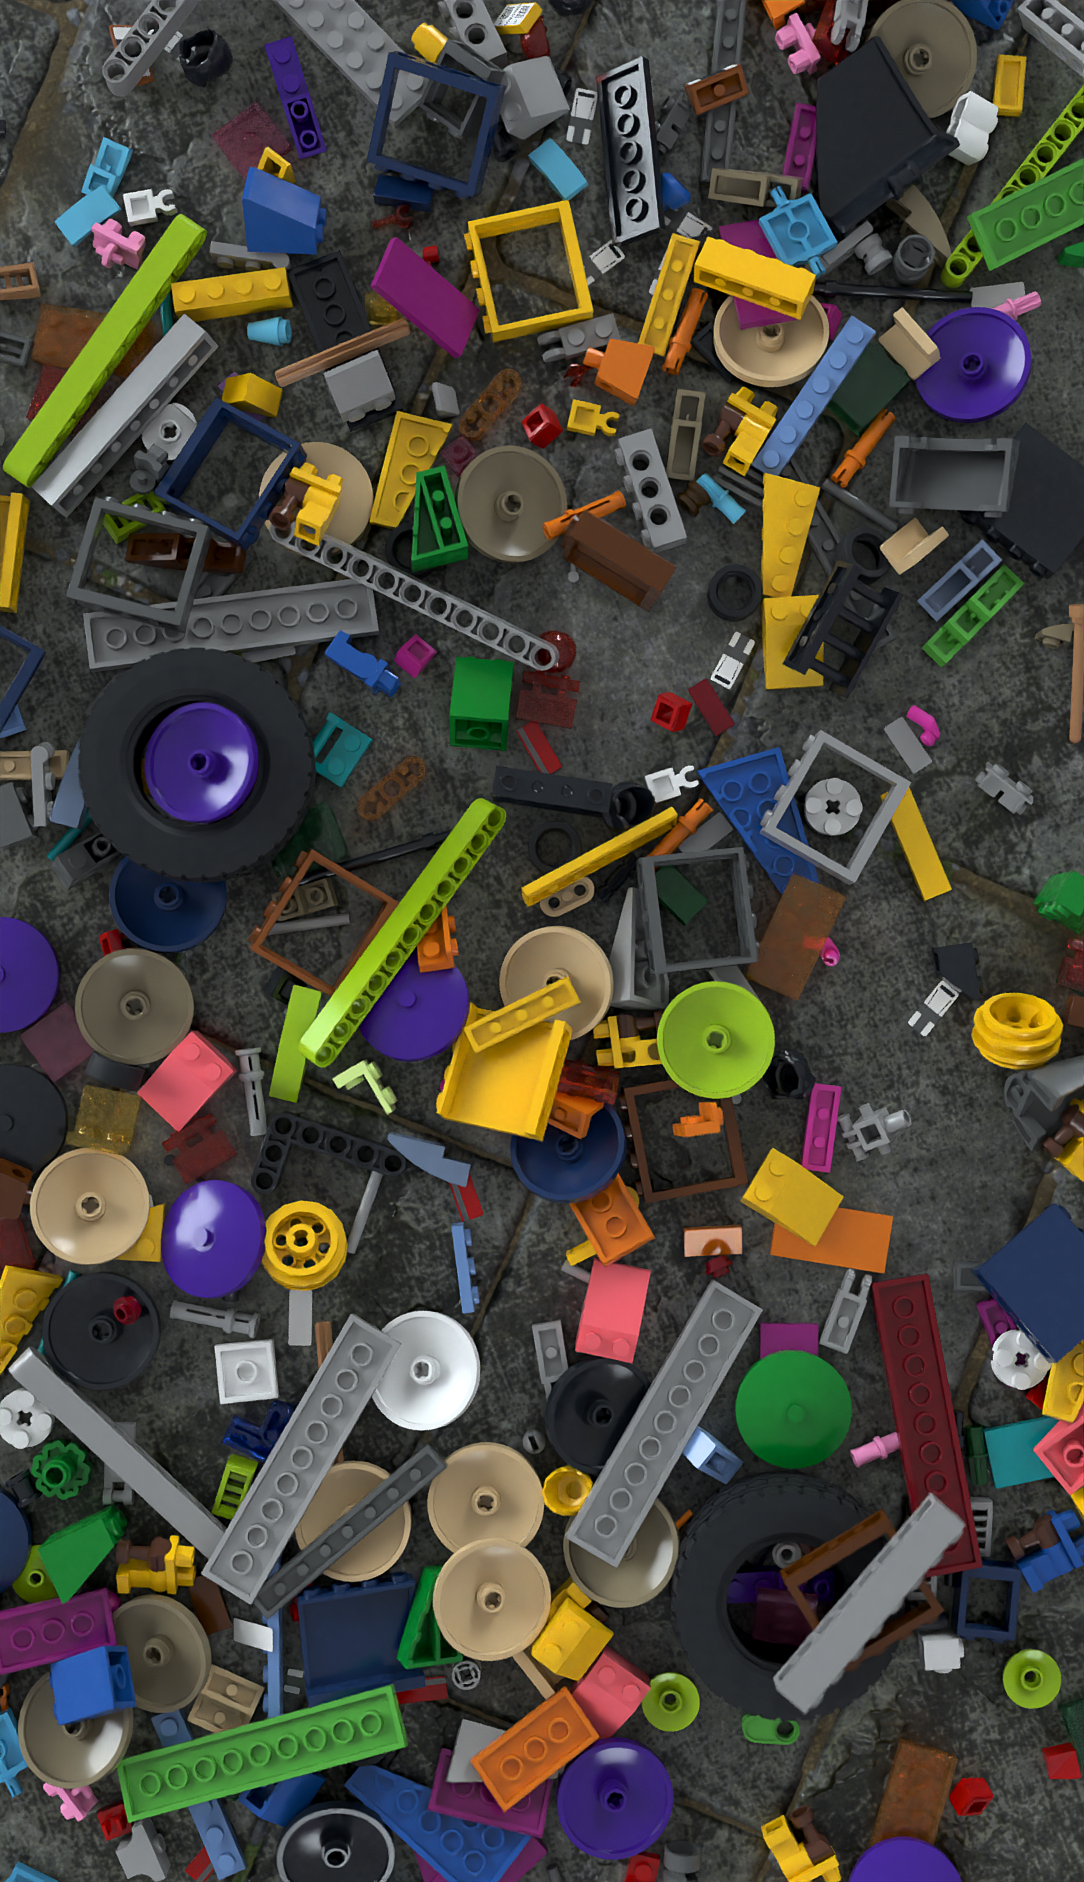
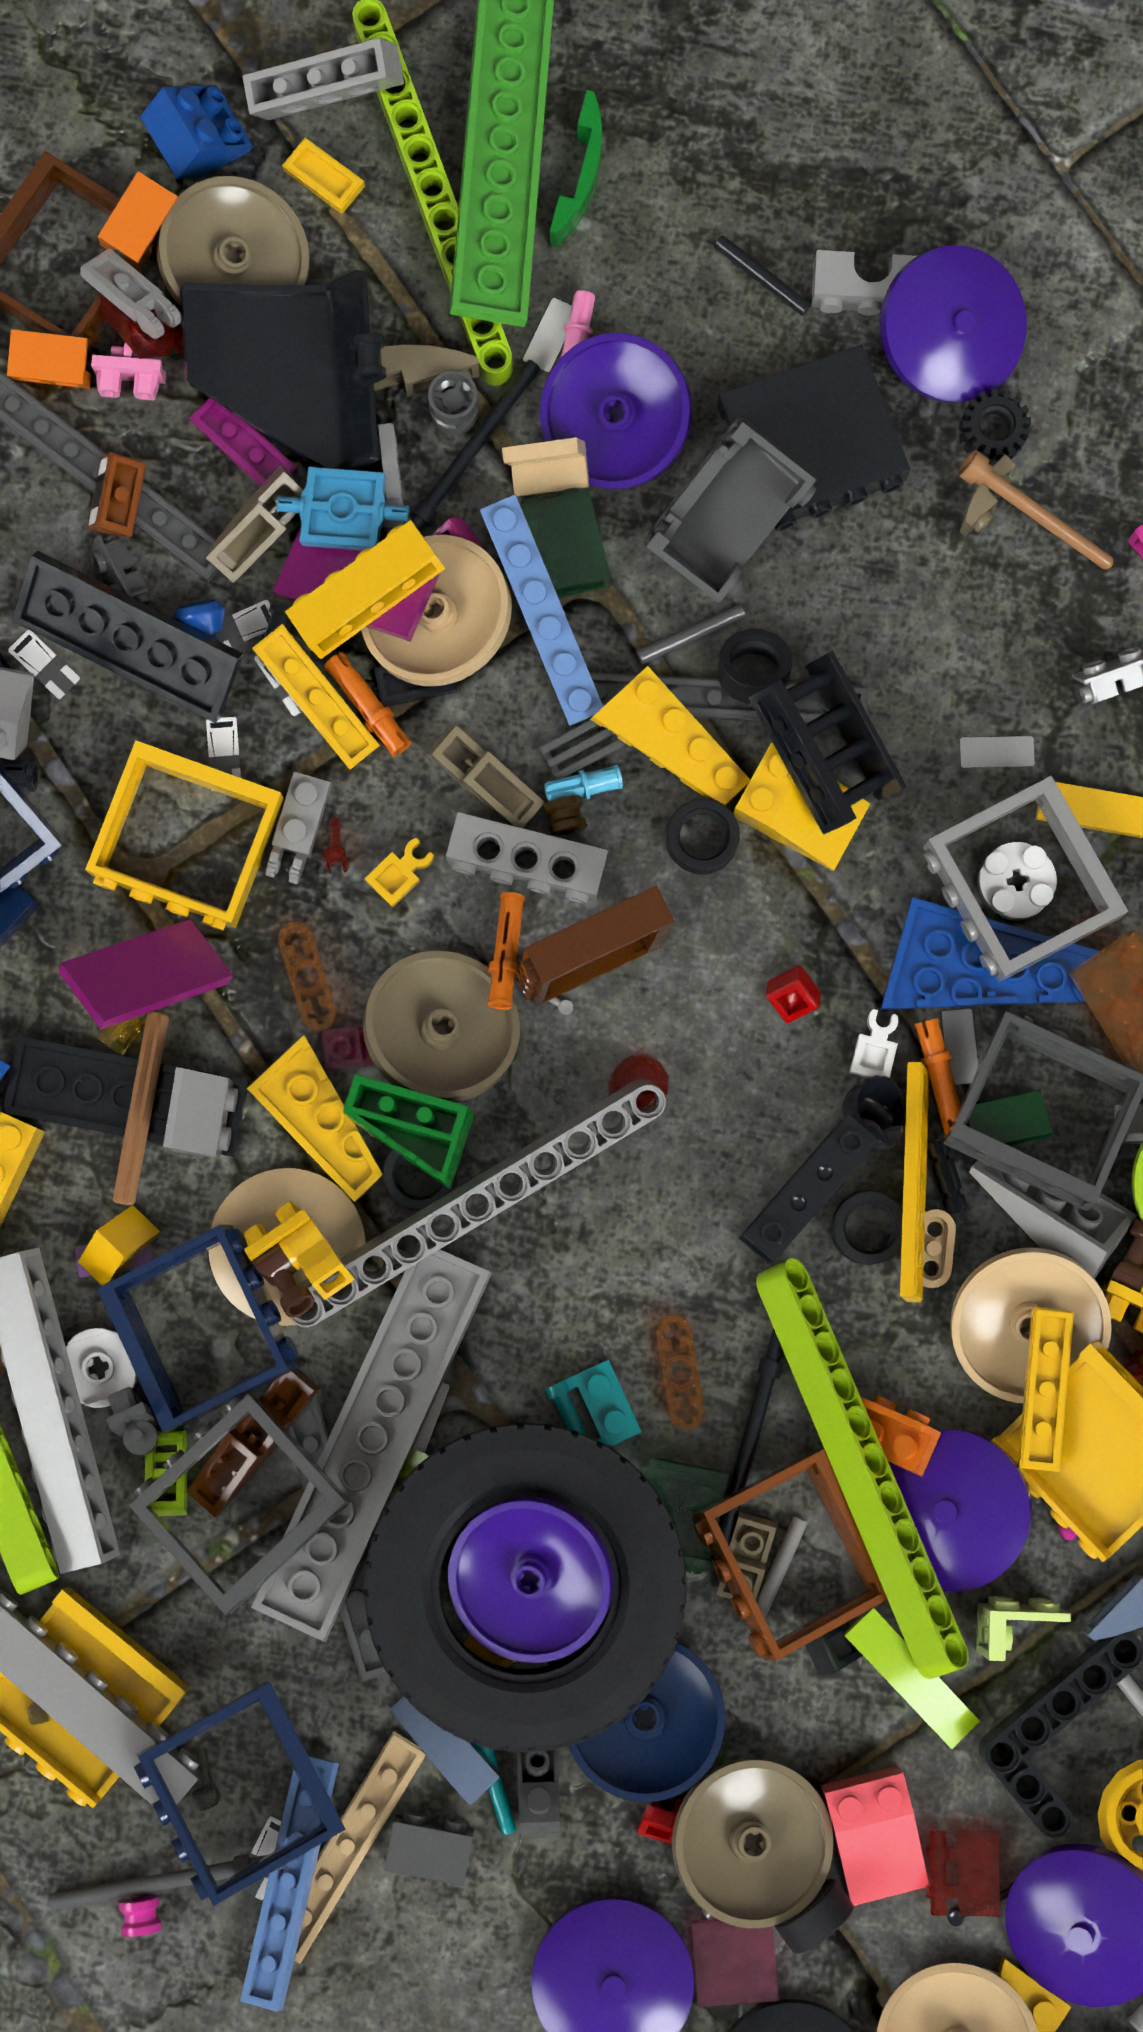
camera: 55 degrees left, 5 degrees down
(42, 782) = (419, 1784): light grey plate -> none
(105, 1120) = (864, 1967): clear yellow bracket -> none
(259, 1125) = (914, 1760): light grey pin -> none
(270, 331) = (58, 1175): medium azure cone -> none
(364, 666) = (523, 1316): blue hips -> none
(395, 218) = (20, 951): clear red hand -> none
(414, 656) = (541, 1247): dark pink slope -> none
(430, 254) = (91, 936): red hand -> none
(445, 400) = (269, 1025): light grey slope -> none
(481, 703) = (648, 1205): green slope -> none
(538, 748) = (739, 1172): red sticker -> none
(542, 426) = (370, 933): red slope -> none
(547, 708) = (700, 1134): clear red plate -> none
(558, 169) = (89, 729): medium azure slope -> none
(621, 368) = (364, 802): orange torso -> none
(711, 707) = (814, 945): dark red sticker -> none
(732, 660) = (776, 887): sticker -> none
(747, 424) = (519, 701): yellow hips -> none
(856, 457) = (635, 604): orange pin -> none
(873, 254) = (417, 441): light grey wheel -> none
(911, 545) = (777, 605): tan panel -> none
(927, 722) = (988, 714): dark pink arm -> none
(959, 580) = (848, 576): sand blue slope -> none
(971, 124) = (345, 245): white brick -> none
(972, 615) = (897, 588): bright green slope -> none

